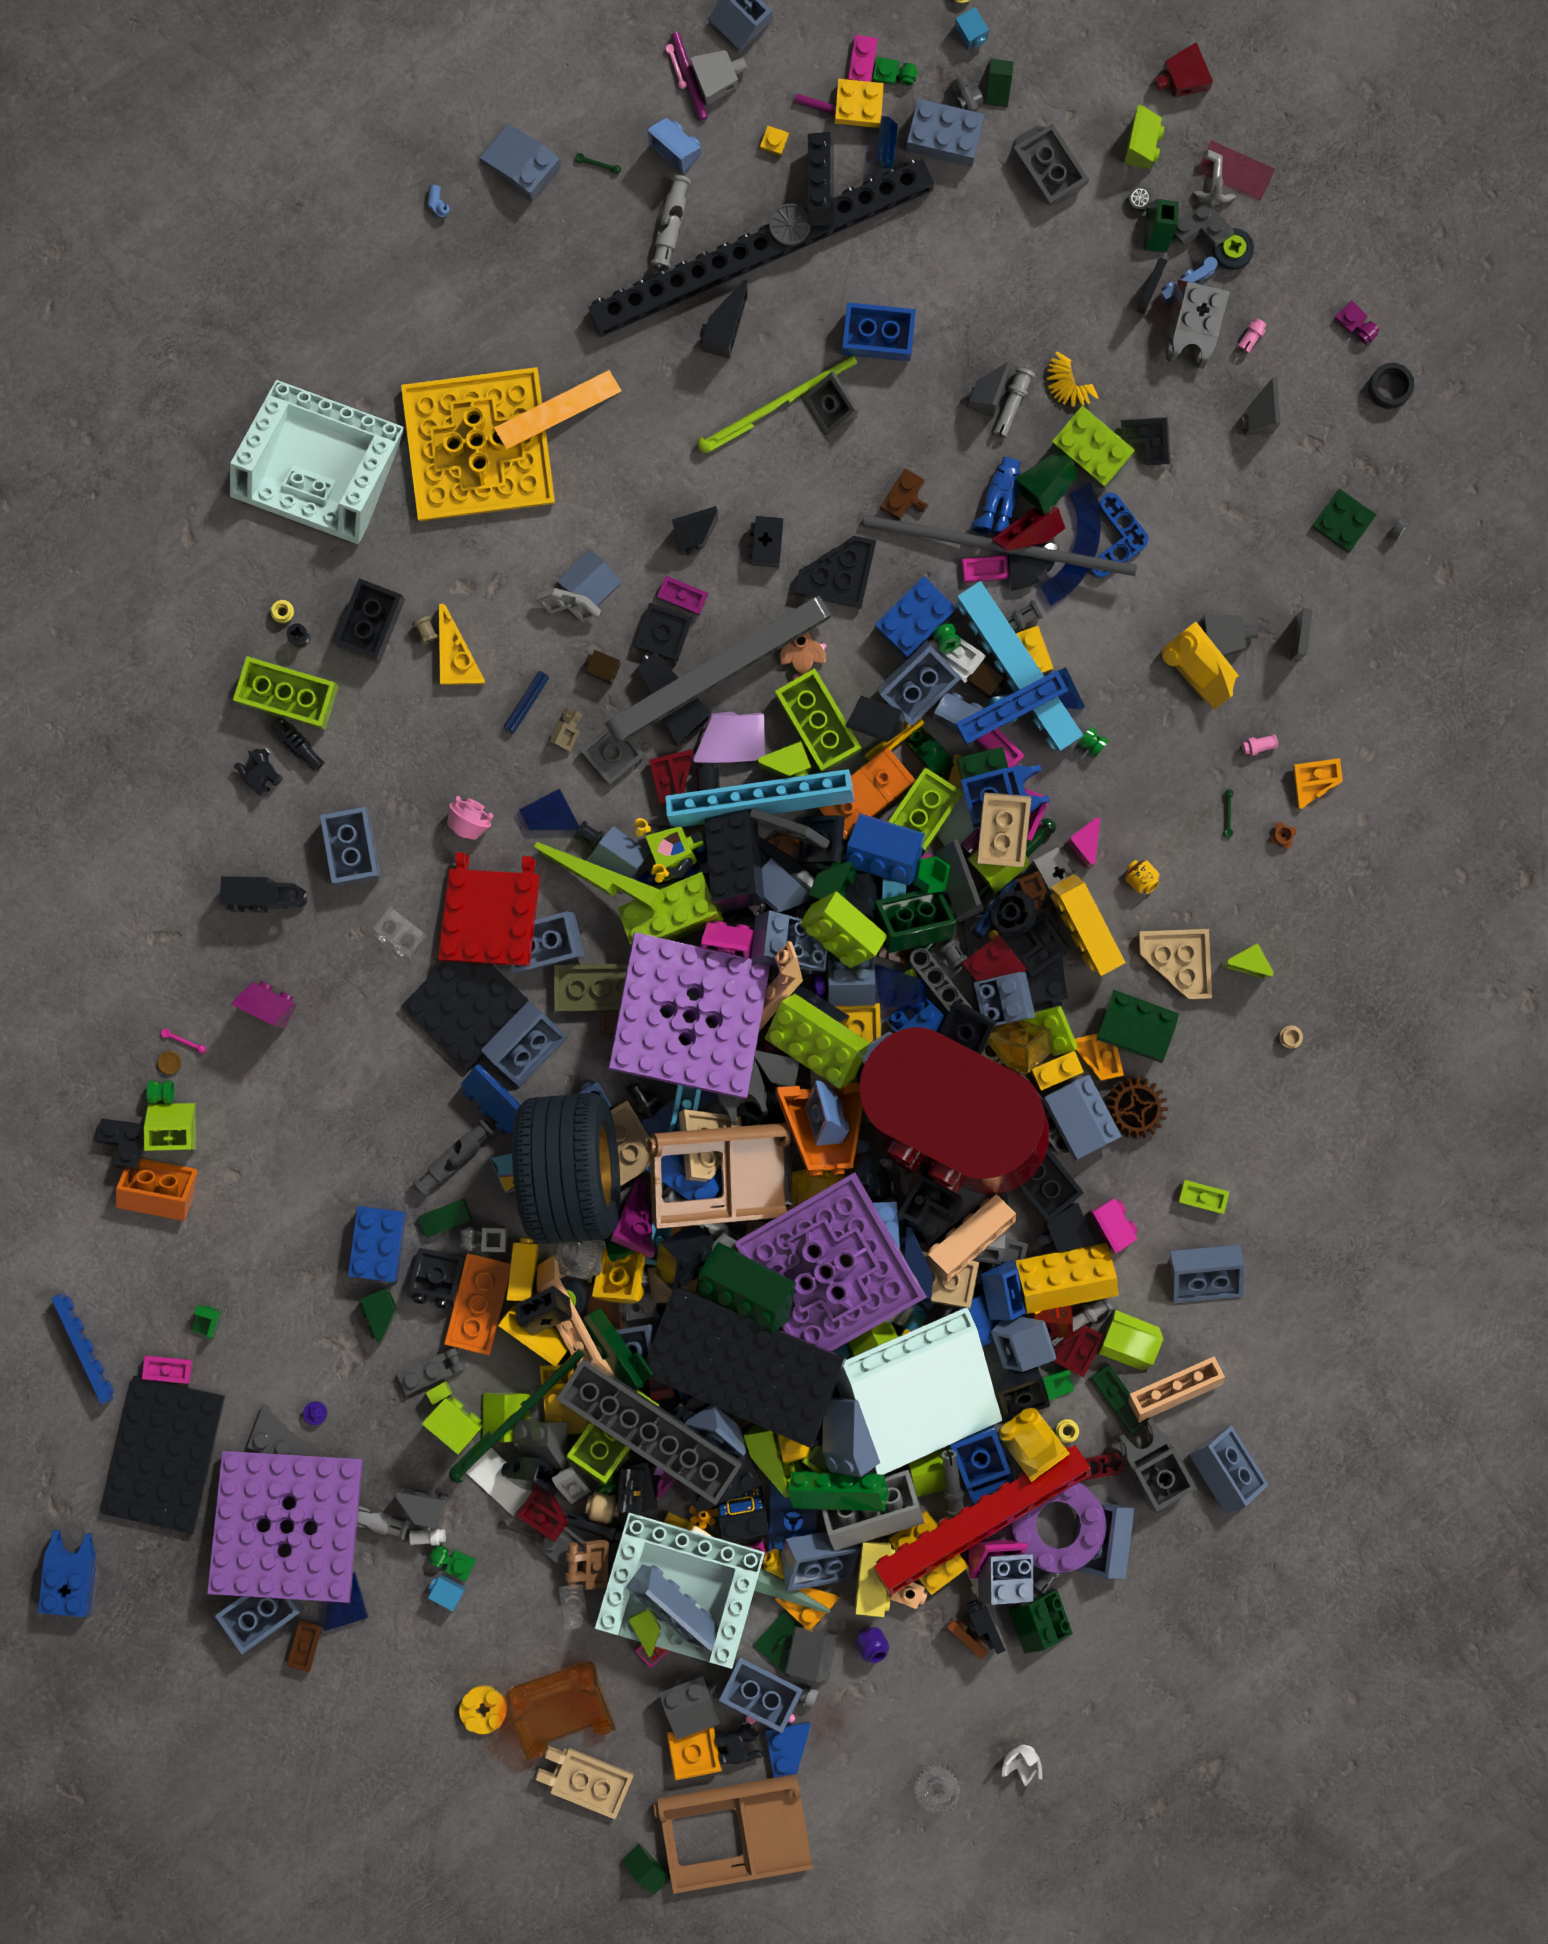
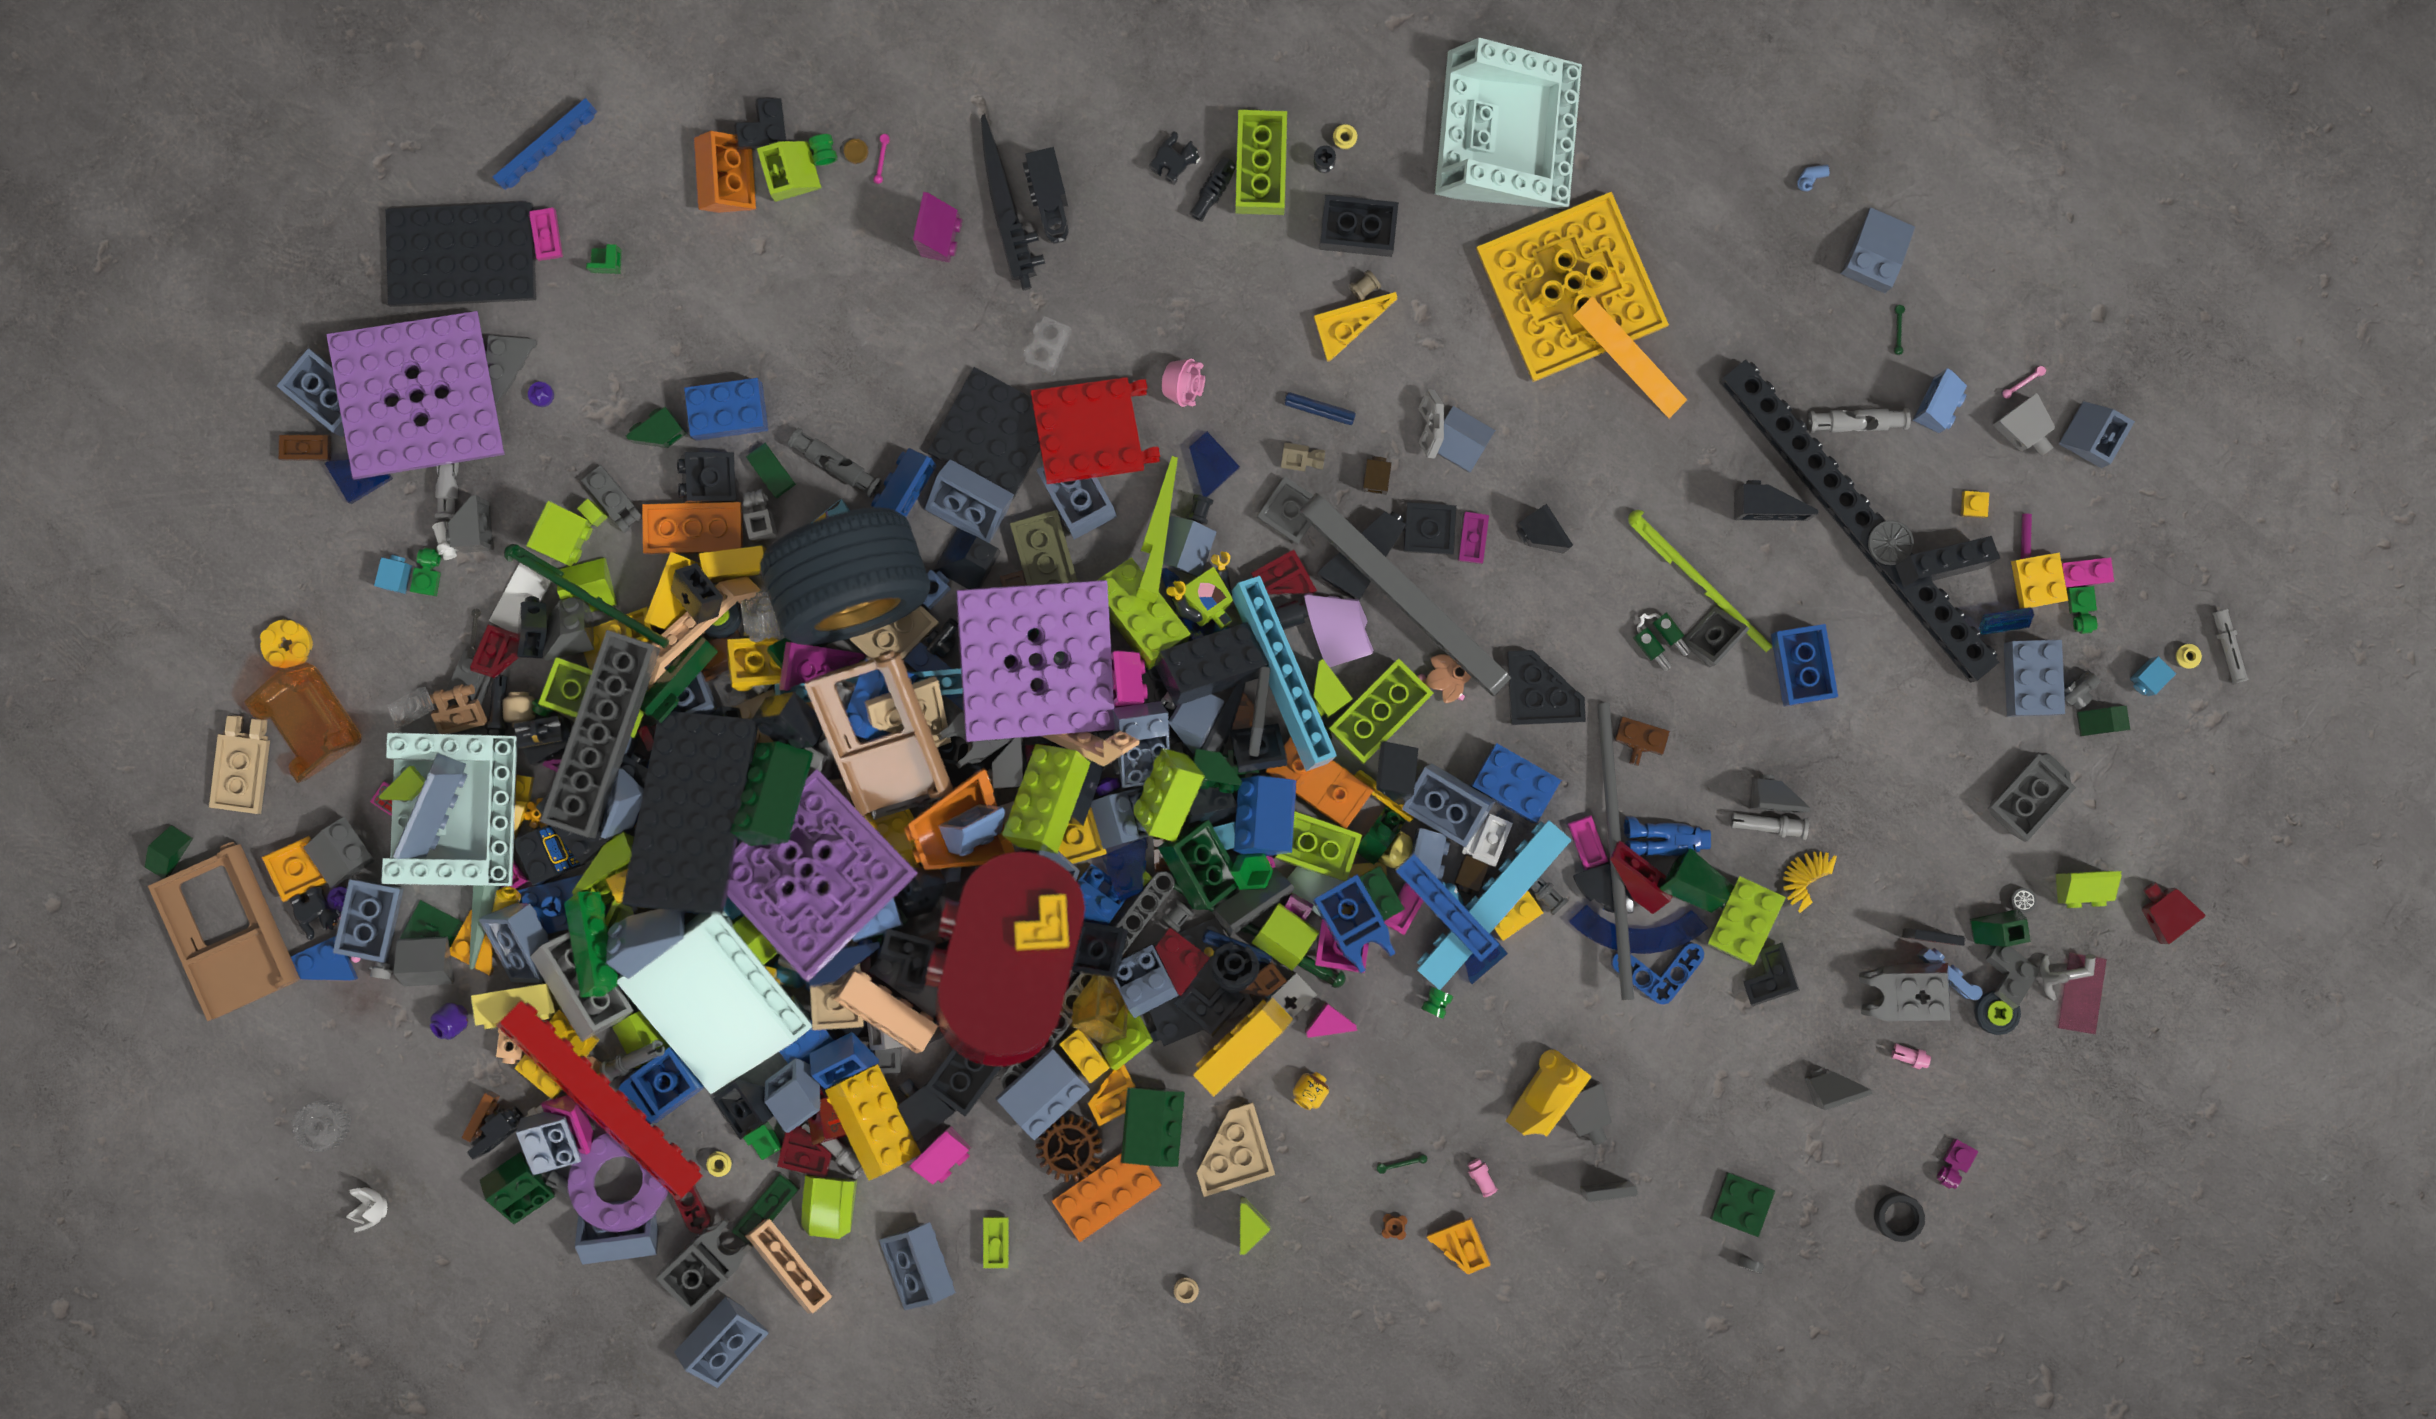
camera: 75 degrees right, 0 degrees up
(69, 1569) = (320, 191): blue brick -> none
(286, 939) = (1011, 230): none -> black piece
(350, 846) = (1122, 270): sand blue brick -> none
(571, 1484) = (532, 670): light grey plate -> none
(577, 1059) = (967, 560): none -> black slope
(691, 82) = (2017, 398): magenta bar -> none
(732, 1719) = (336, 898): none -> dark purple tile
(766, 555) = (1541, 617): black brick -> none
(823, 463) = (1651, 645): none -> dark green piece
(940, 1062) = (1050, 931): none -> yellow plate
(946, 637) = (1503, 821): green wheel -> none
(949, 739) = (1398, 851): none -> light yellow hair
(1003, 829) = (1316, 933): tan plate -> none
(1032, 1443) = (693, 1131): yellow slope -> none
(1187, 1087) = (1104, 1195): none -> orange plate

